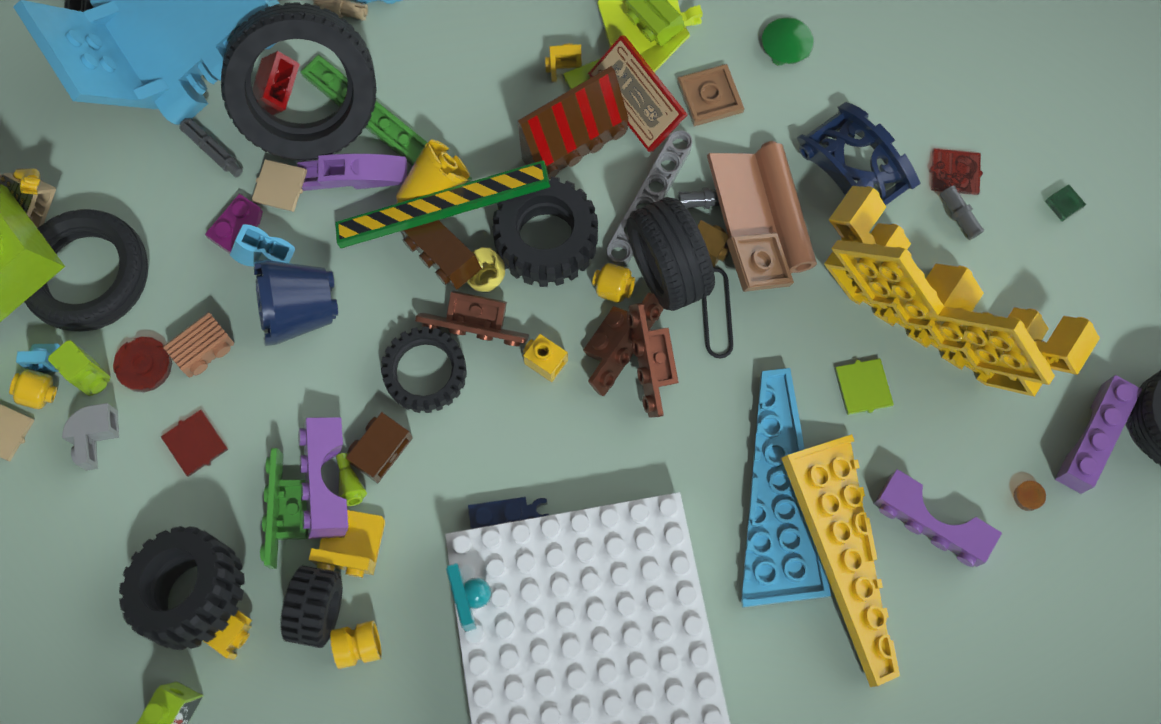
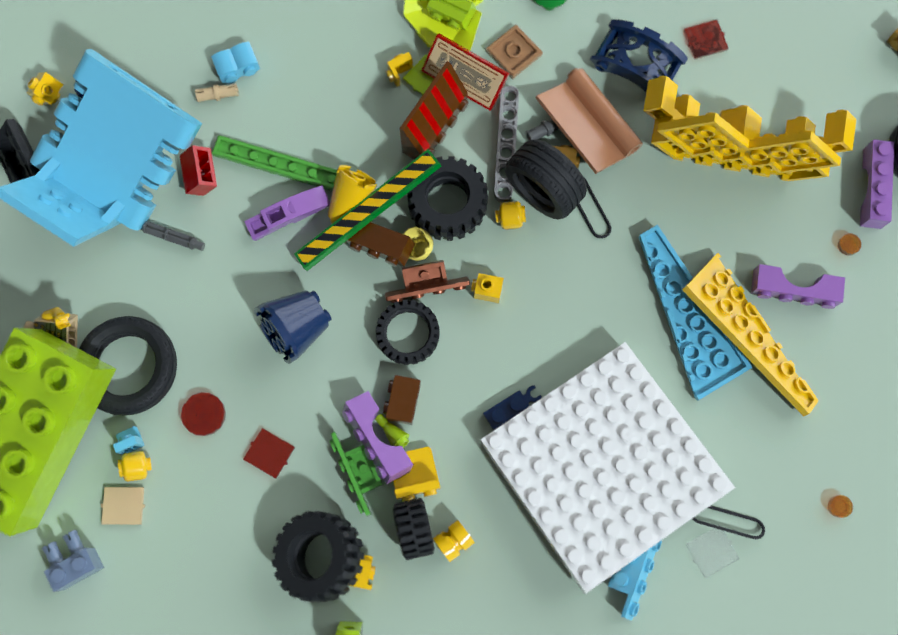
camera: 25 degrees left, 5 degrees up
(79, 368) = (163, 437): lime brick -> none
(87, 427) = (187, 478): light grey brick -> none
(199, 345) = (239, 383): nougat brick -> none
(229, 224) = (222, 288): magenta wing -> none
(256, 245) = (247, 296): medium azure brick -> none
(279, 185) = (238, 243): tan piece -> none
(289, 138) = (198, 128): black tyre -> none
(472, 594) = (519, 474): teal tile -> none
(613, 344) = (531, 254): copper bracket -> none
(654, 358) = (564, 257): copper bracket -> none
(760, 261) = (606, 159): medium nougat tile -> none
(864, 386) = (710, 216): lime piece -> none
(961, 212) = (723, 67): dark grey pin -> none
(1065, 203) = (788, 31): clear green tile -> none

